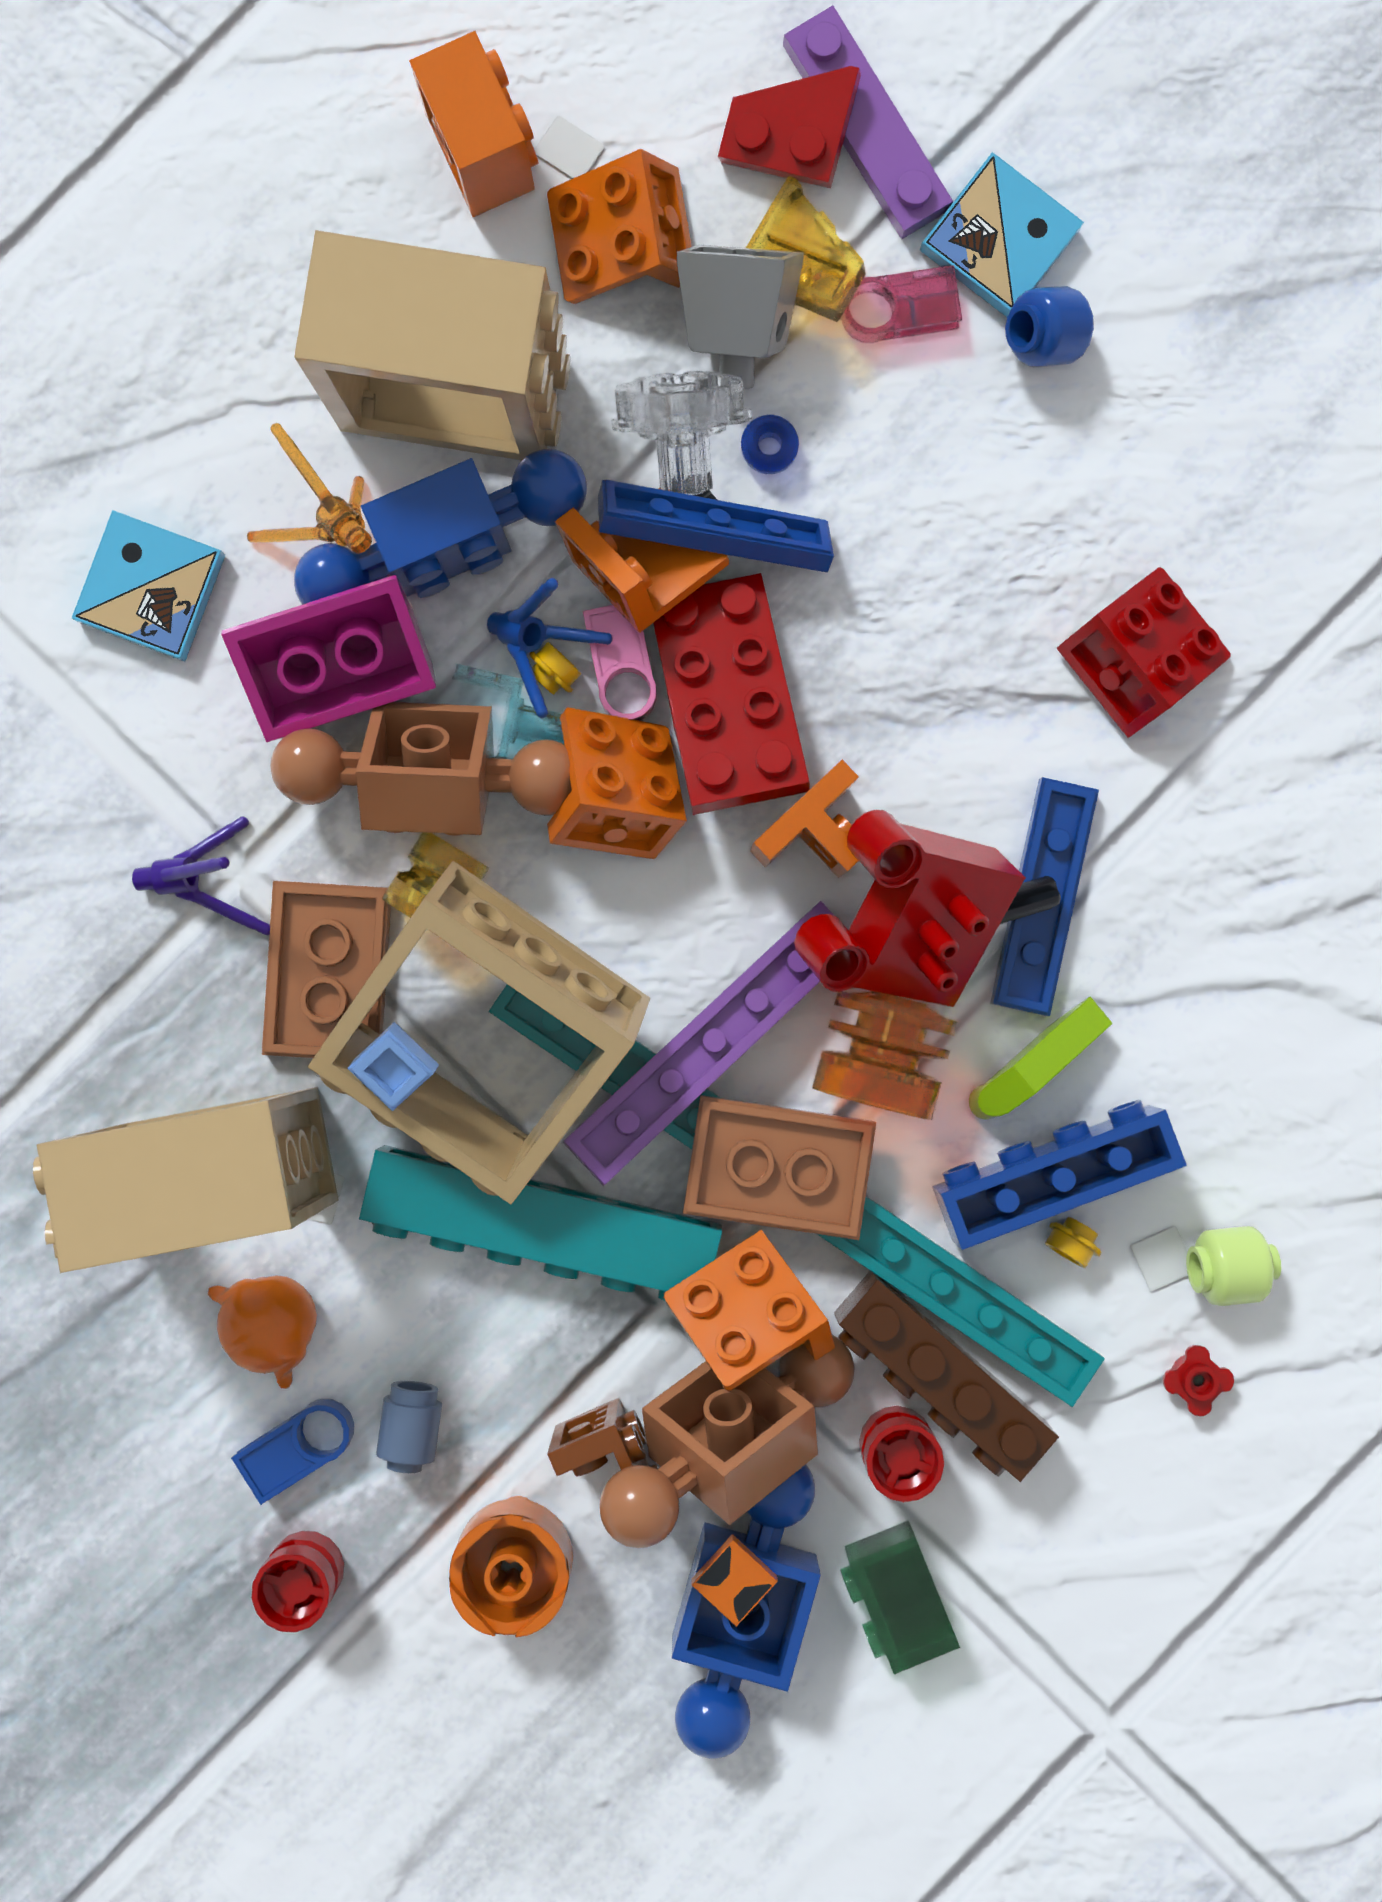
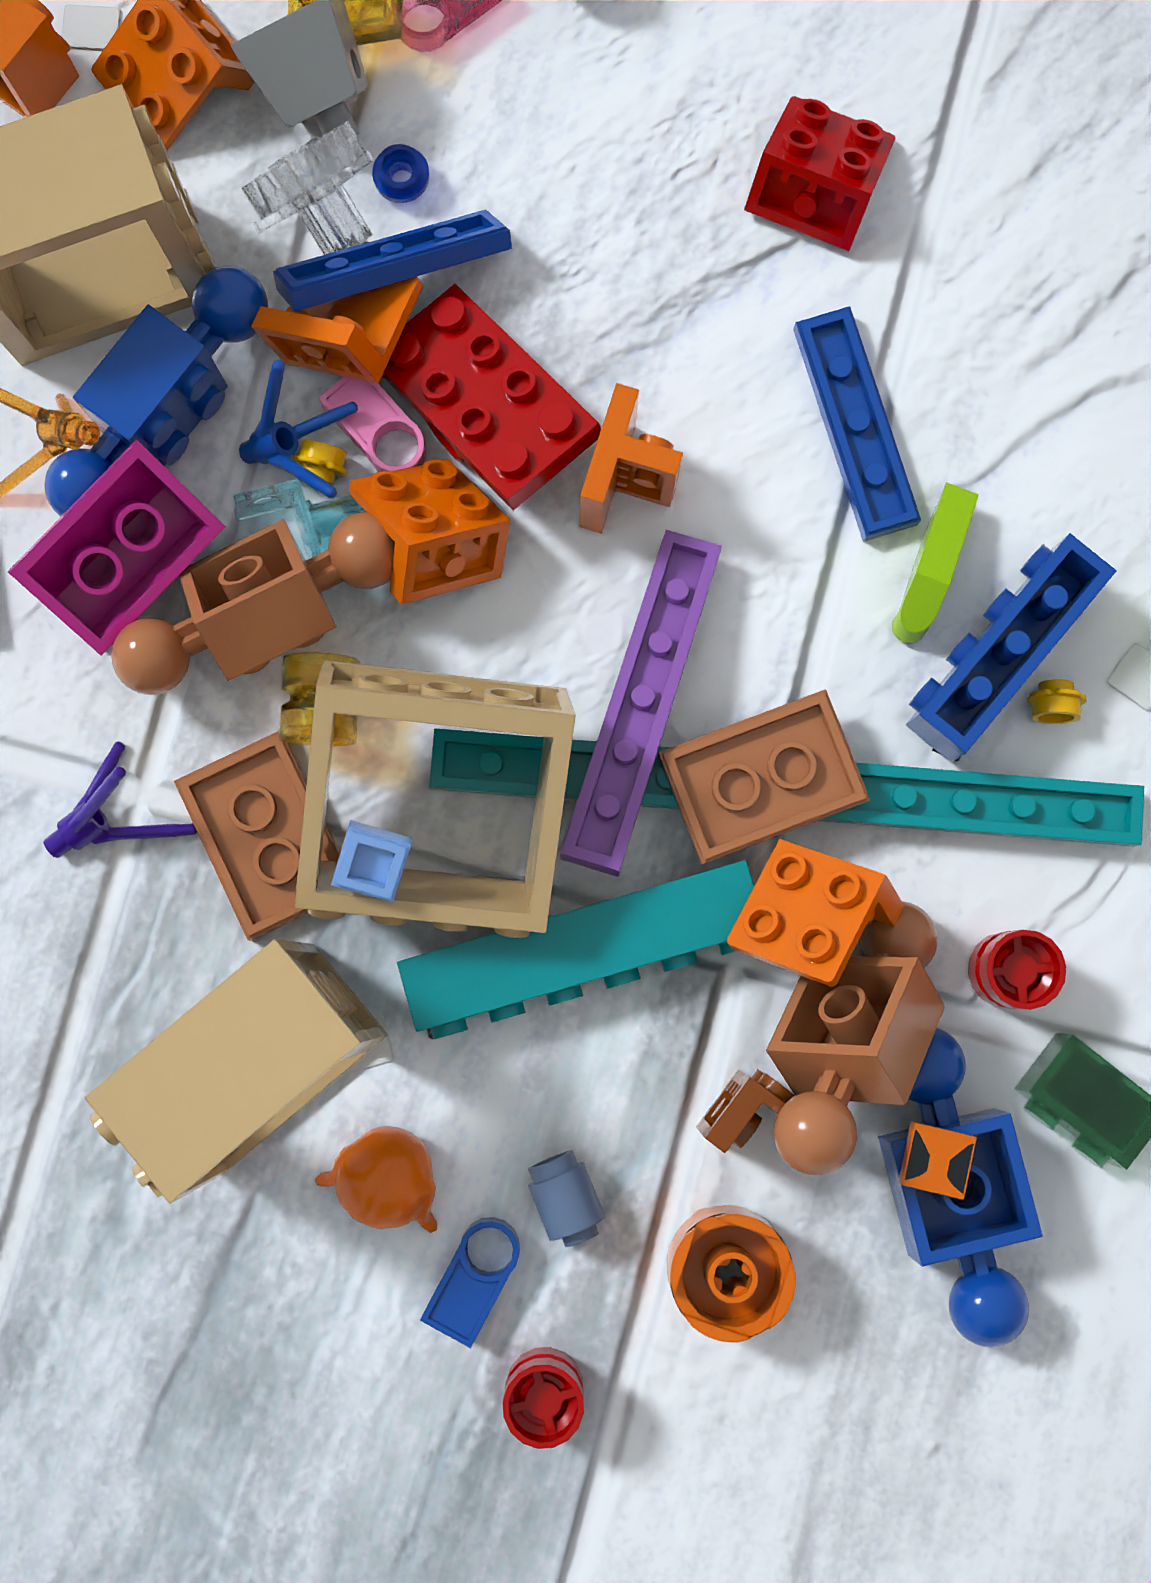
camera: 30 degrees left, 5 degrees down
(884, 1054) = (795, 614): clear orange wheel -> none
(924, 914) = (763, 481): red piece -> none
(946, 1376) = (1015, 879): reddish brown brick -> none

